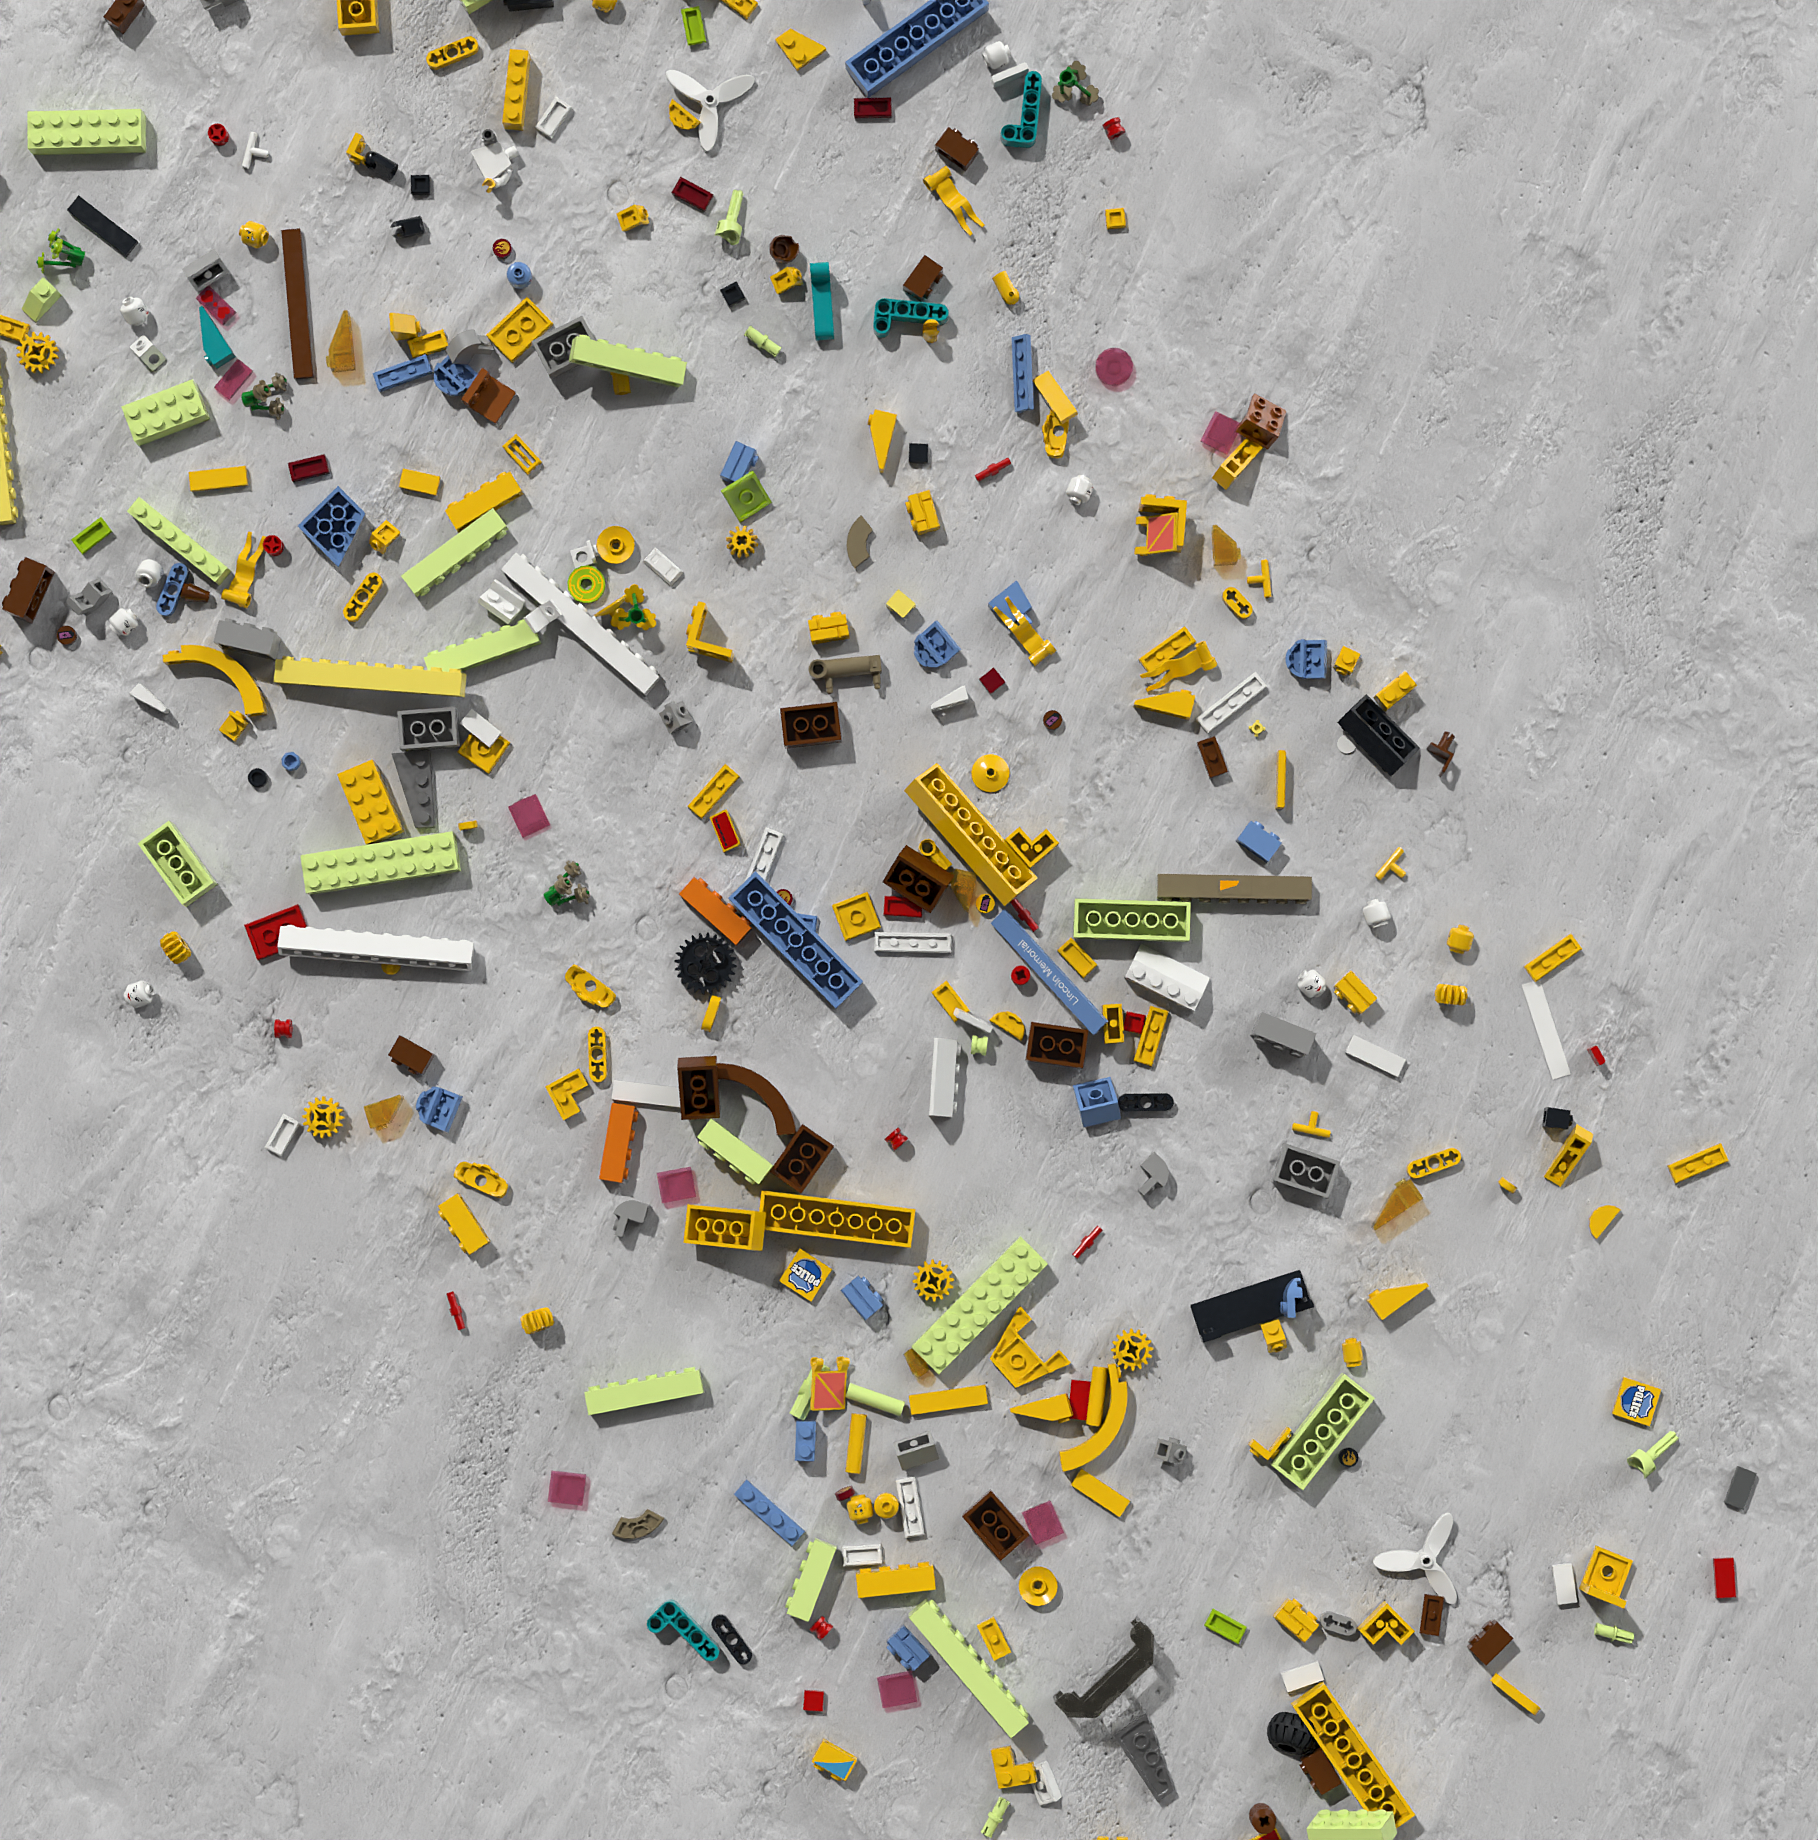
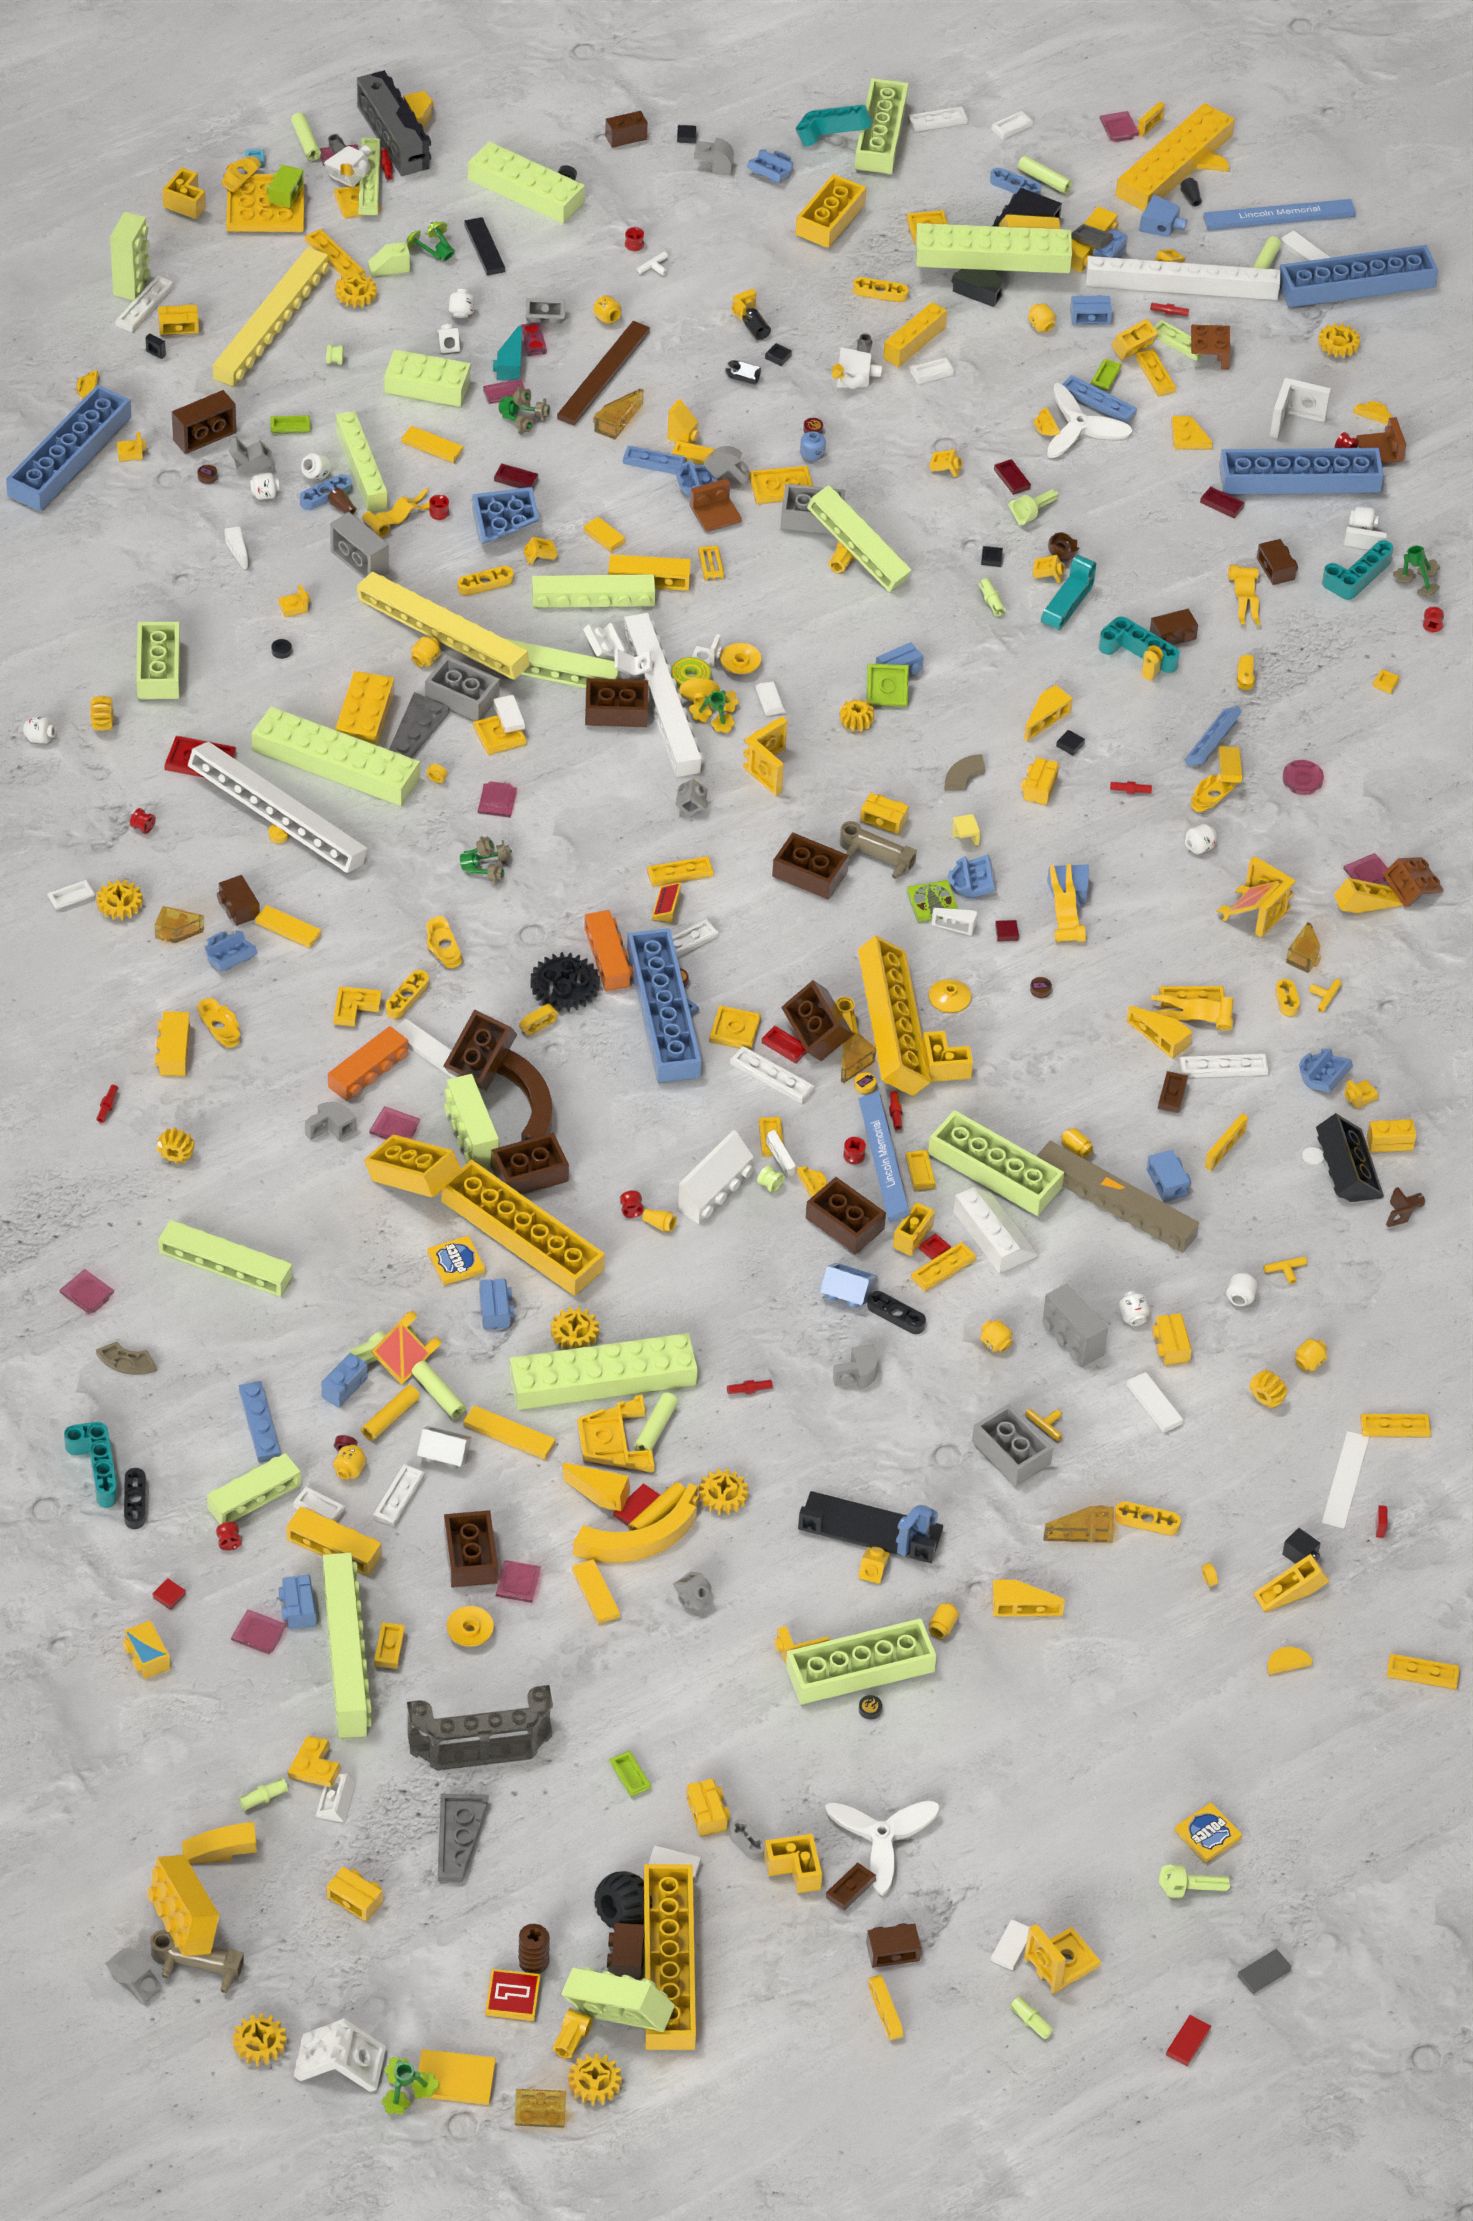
camera: 30 degrees right, 35 degrees down
(73, 436) = (335, 354): none -> yellowish green wheel
(112, 97) = (568, 171): none -> black tile
(250, 692) = (321, 552): yellow arch -> none
(291, 761) = (321, 651): medium blue tile -> none
(372, 707) = (425, 651): none -> yellow head
(464, 1051) = (288, 926): none -> yellow tile
(555, 661) = (616, 702): none -> reddish brown brick
(706, 60) = (1100, 400): none -> medium blue plate
(886, 1505) = (377, 1473): yellow head -> none
(916, 1363) = (503, 1386): clear yellow cone -> none
(919, 689) = (930, 896): none -> lime tile
(925, 1137) = (660, 1219): none -> yellow cone
(1045, 1322) = (656, 1422): none -> yellowish green piece
(1174, 856) = (1077, 1142): none -> yellow brick
(1231, 1077) = (996, 1335): none -> yellow head
(1256, 728) = (1233, 1096): light yellow piece -> none

